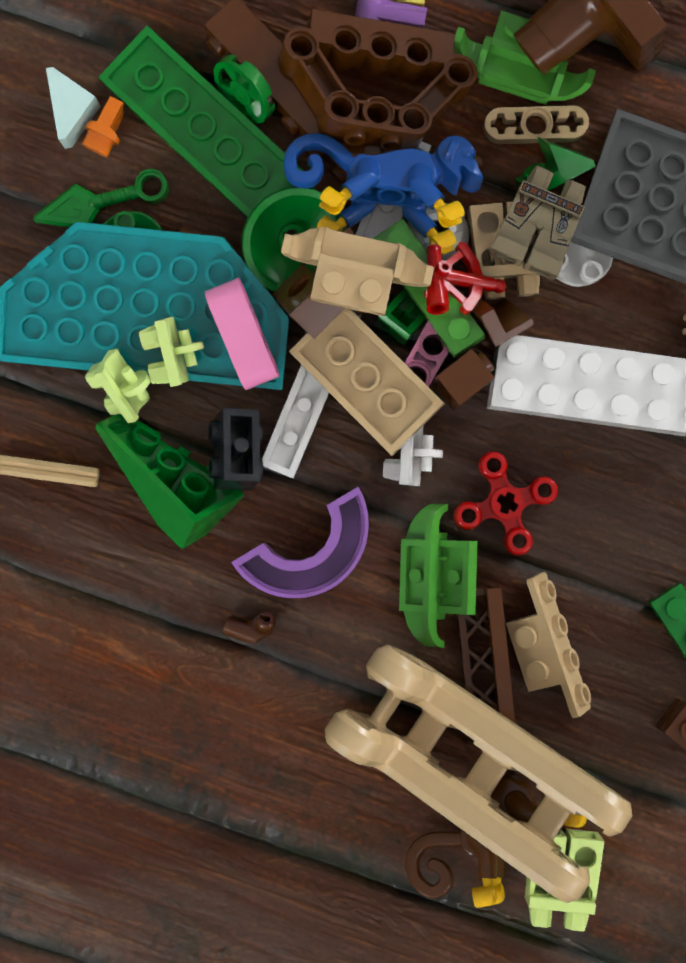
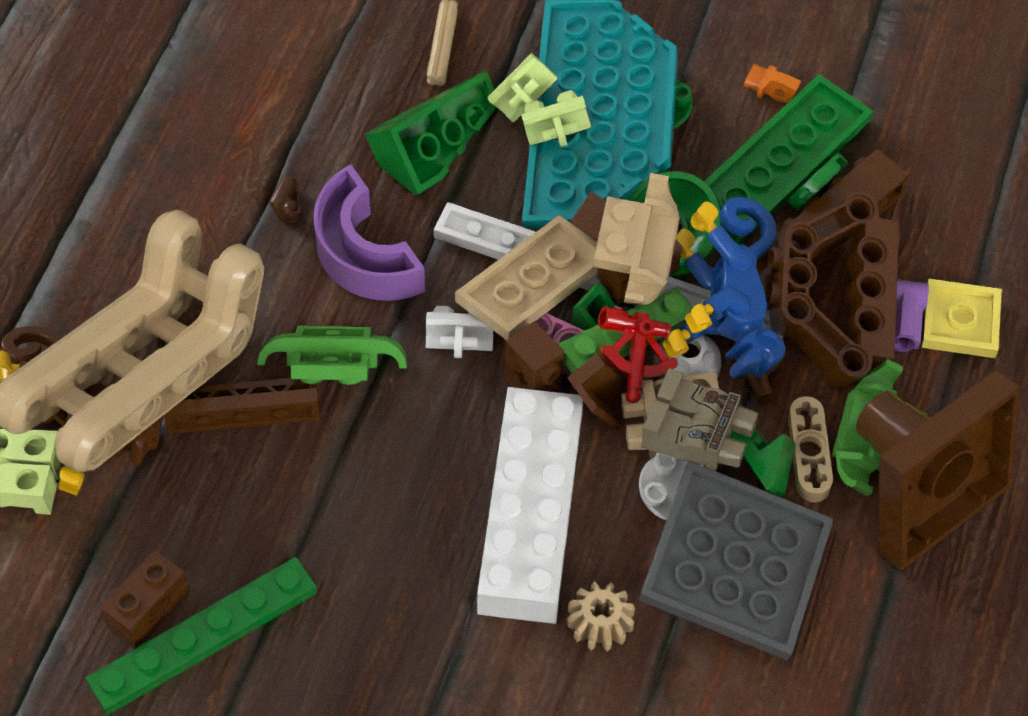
camera: 90 degrees right, 30 degrees down
(71, 107) = (789, 52): light aqua slope -> none
(82, 205) = (697, 68): green piece -> none
(236, 449) = (461, 177): black brick -> none
(242, 333) = (574, 174): bright pink beam -> none
(519, 497) = (406, 416): red gear -> none
(545, 649) = (253, 459): tan bracket -> none

